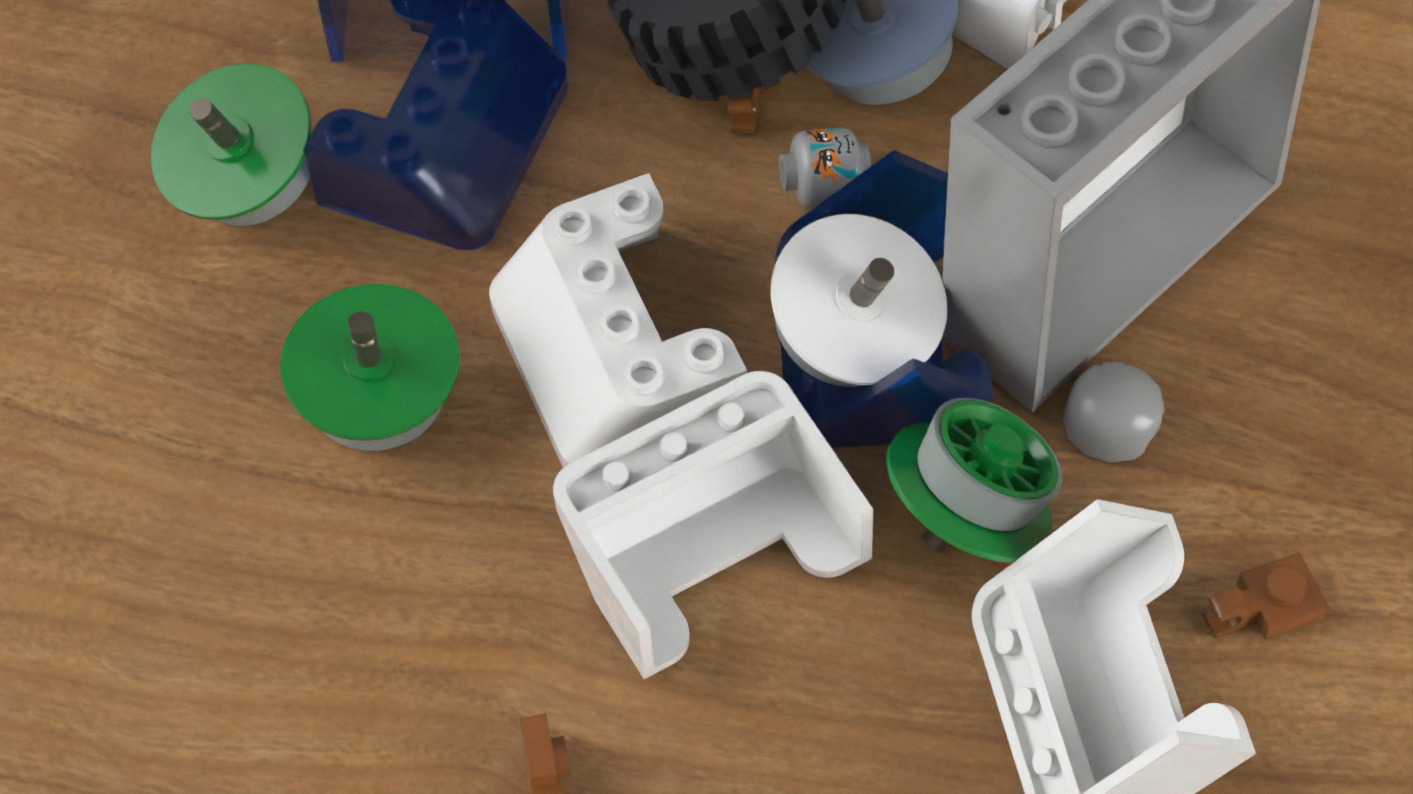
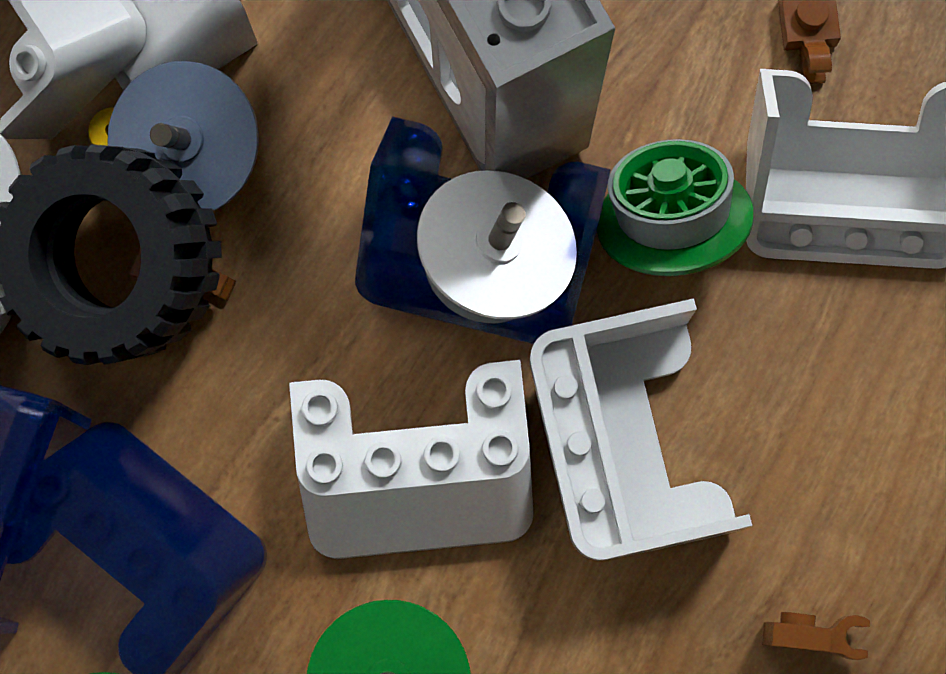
camera: 75 degrees left, 20 degrees up
(822, 163) = (303, 232): light grey head -> none
(1113, 411) = (624, 88): light grey hair -> none

